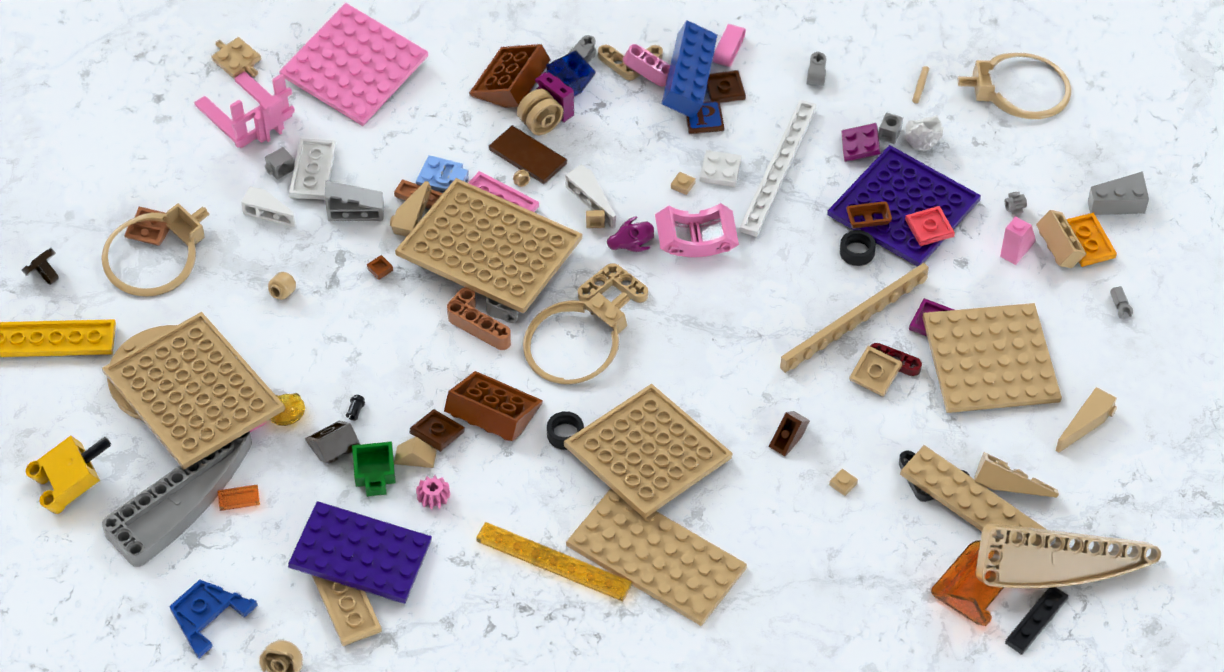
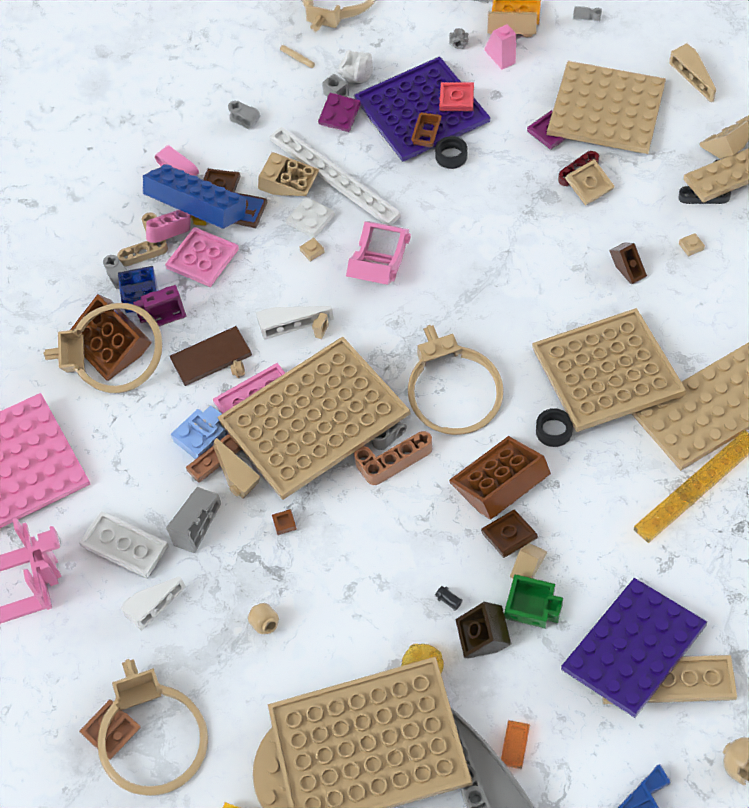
camera: 60 degrees left, 5 degrees up
(279, 163) = (99, 572): light grey brick -> none
(433, 492) = (576, 562): bright pink gear -> none
(479, 54) = (71, 349): none -> tan brick
(540, 112) = (178, 323): tan wheel -> none
(613, 279) = (397, 334): tan beam -> none
(631, 105) = (202, 257): none -> bright pink plate
(632, 236) = (357, 302): magenta animal -> none
(755, 129) = (286, 176): none -> tan slope
(853, 318) = (528, 183): tan plate -> none

